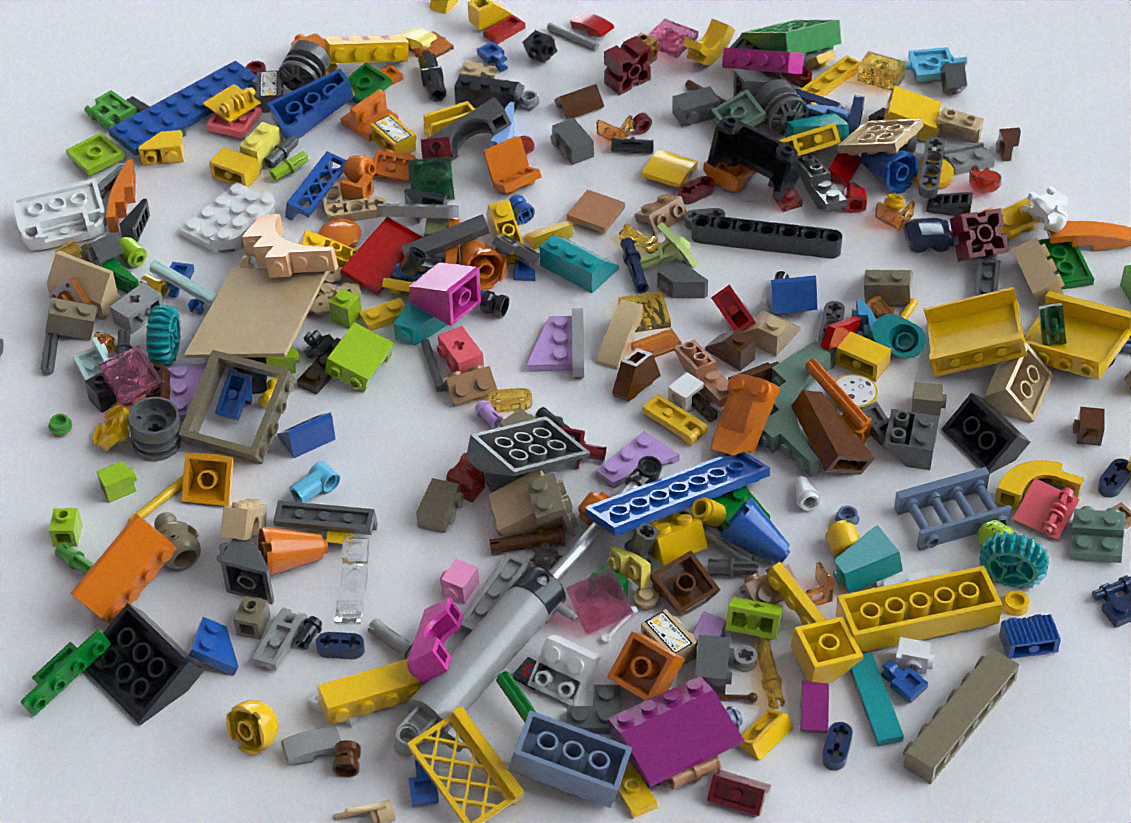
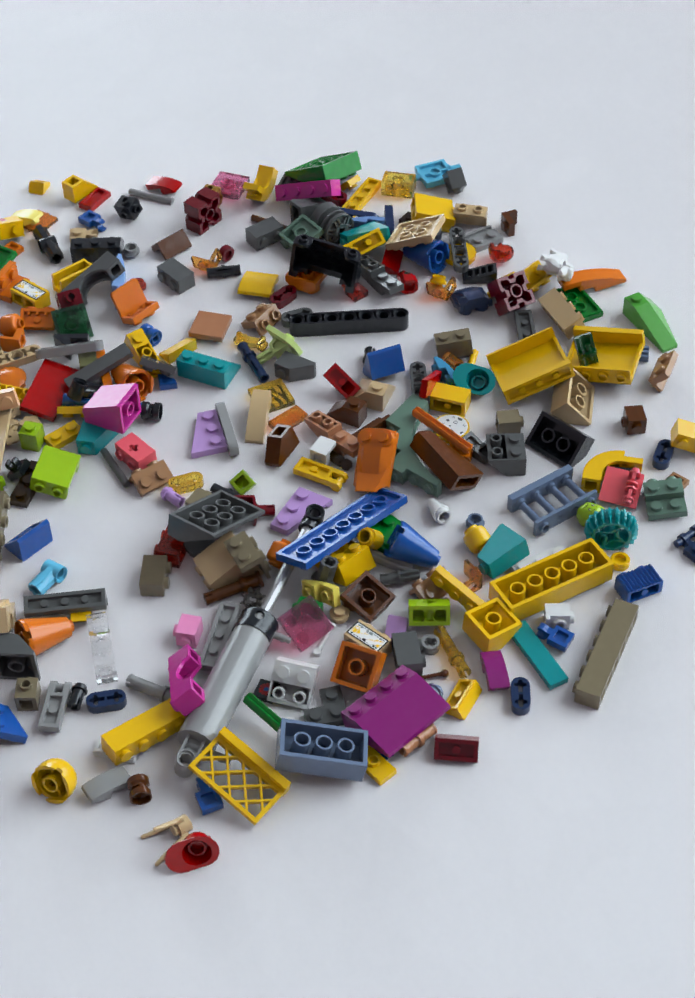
camera: 15 degrees left, 0 degrees up
(577, 412) = (242, 482): none -> lime slope

